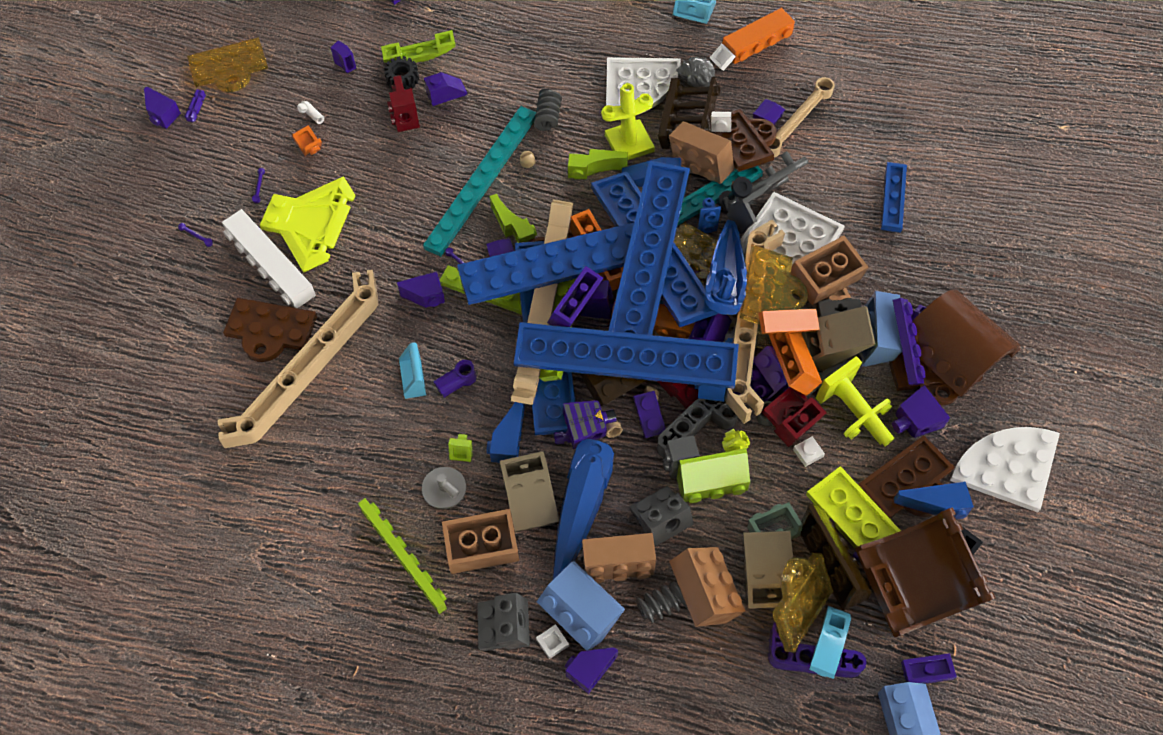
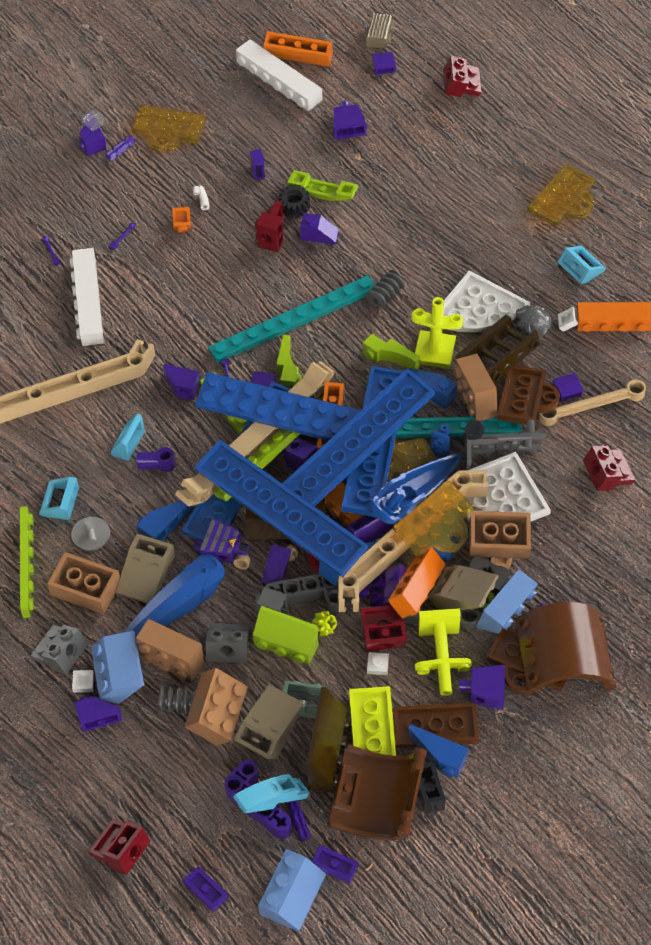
camera: 35 degrees right, 5 degrees down
(152, 90) = (93, 120): none -> clear tile
(269, 327) = (53, 348): reddish brown plate -> none
(310, 221) = (140, 283): neon yellow plate -> none
(401, 483) = (65, 509): none -> medium azure tile
(460, 448) = (121, 511): lime tile -> none
(527, 159) = (340, 321): tan hinge -> none
(575, 298) = (275, 445): dark purple brick -> none
(721, 122) = (514, 371): white plate -> none
(788, 321) = (427, 552): tile -> none
(804, 593) = (271, 752): clear yellow plate -> none
(859, 645) = (299, 820): none -> dark purple axle
(868, 164) = (607, 468): none -> dark red brick
(894, 197) = (616, 510): blue plate -> none
(907, 333) = (513, 622): dark purple plate -> none
(1010, 465) = (529, 766): white plate -> none

